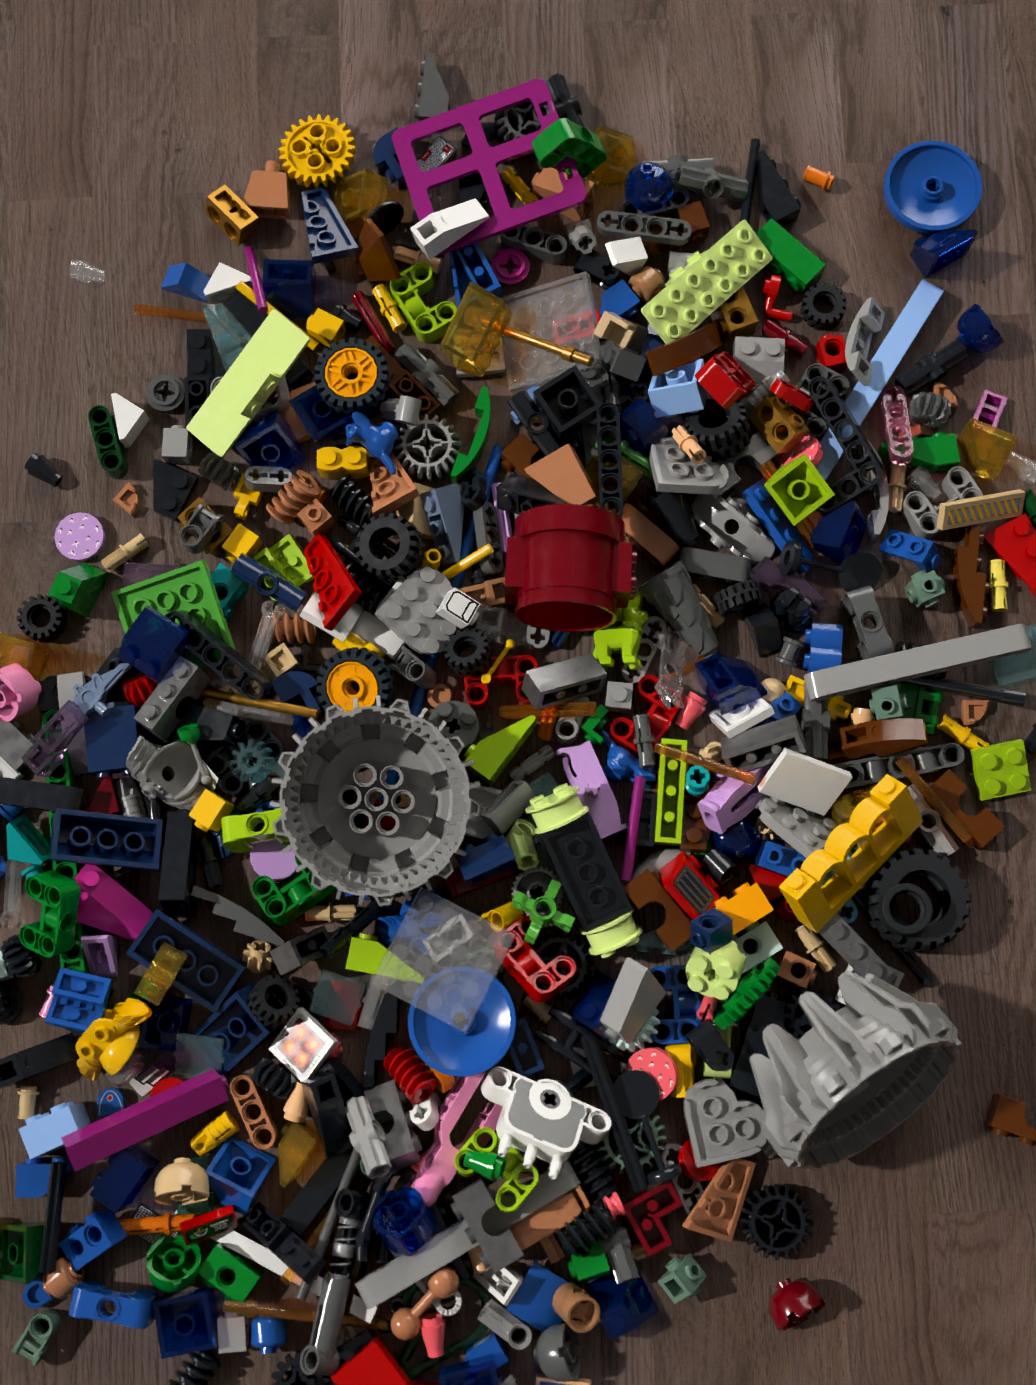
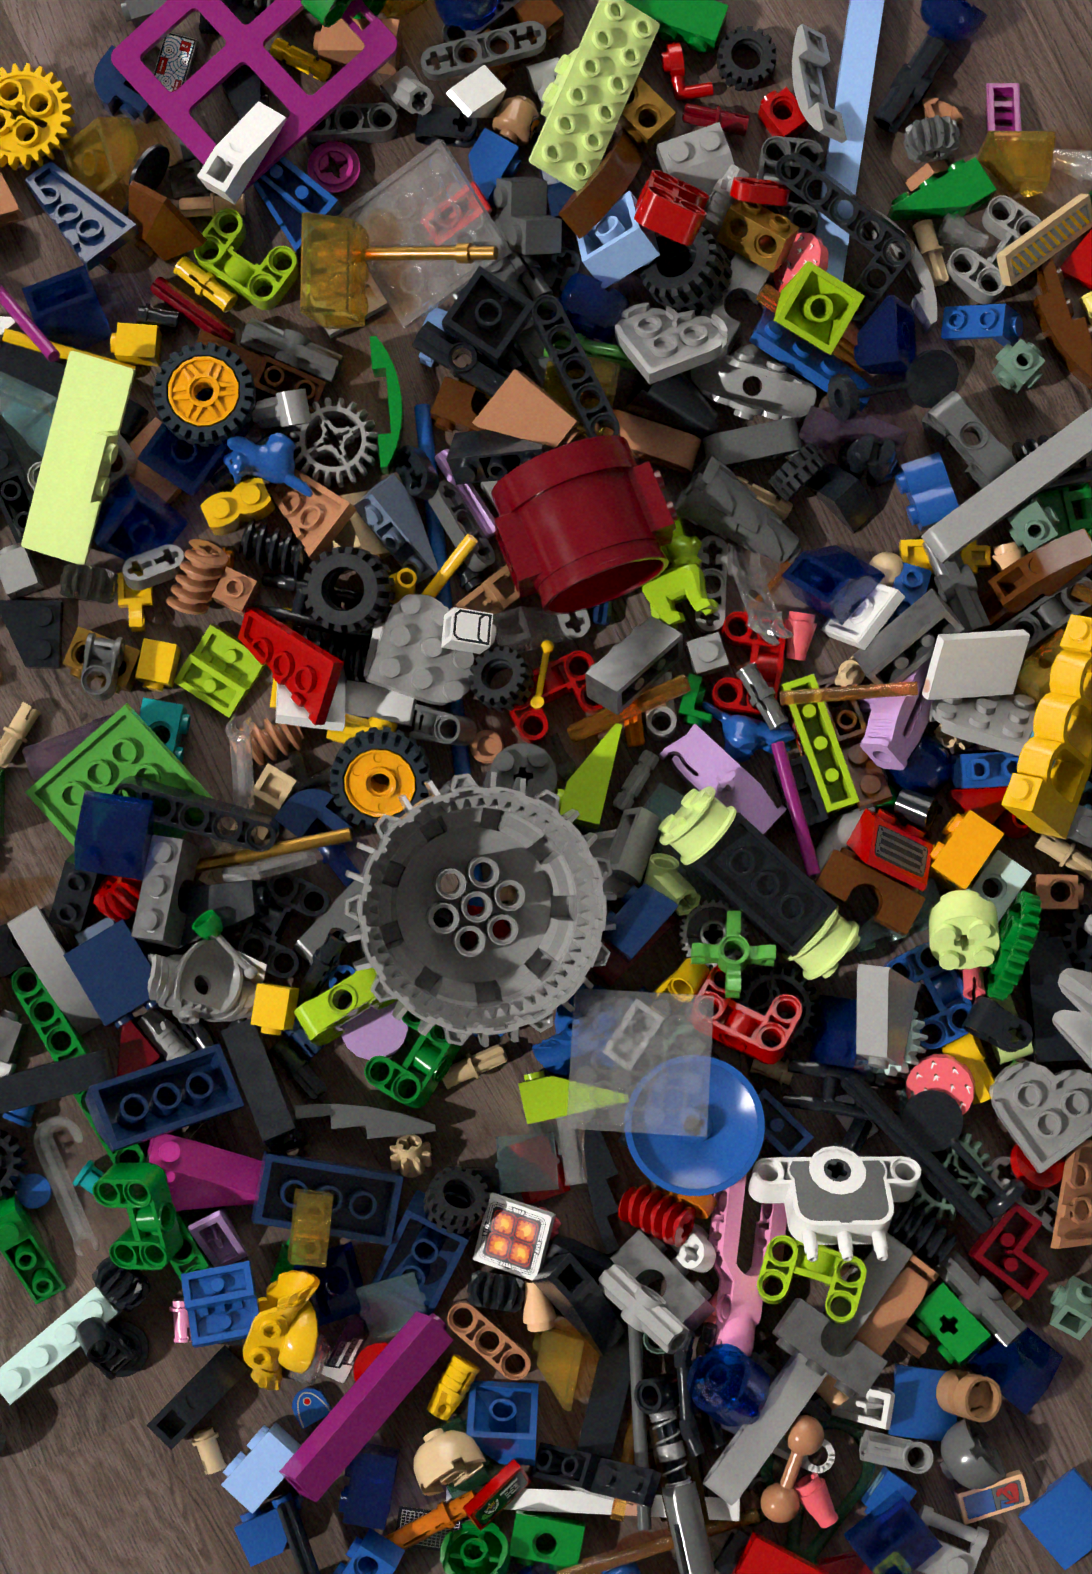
camera: 30 degrees left, 5 degrees up
(26, 842) = (63, 1144): teal slope -> none
(54, 739) = (45, 1003): clear purple slope -> none
(91, 695) = (65, 929): sand blue piece -> none
(248, 771) = (300, 913): clear light blue gear -> none
(254, 574) = (238, 699): dark blue piece -> none
(300, 950) = (462, 1125): flat silver brick -> none
(356, 925) = (506, 1084): black pin -> none
(485, 1163) = (798, 1277): green cone -> none
(586, 1230) = (944, 1302): black piece -> none
(614, 1206) = (963, 1260): coral bush -> none
(615, 329) = (508, 198): tan panel -> none
(688, 444) = (660, 307): light nougat axle -> none
(702, 775) = (850, 708): teal bush -> none
(711, 930) = (943, 890): dark blue brick -> none
(789, 652) = (888, 512): dark grey bush -> none
(897, 424) = (904, 172): clear pink beam -> none

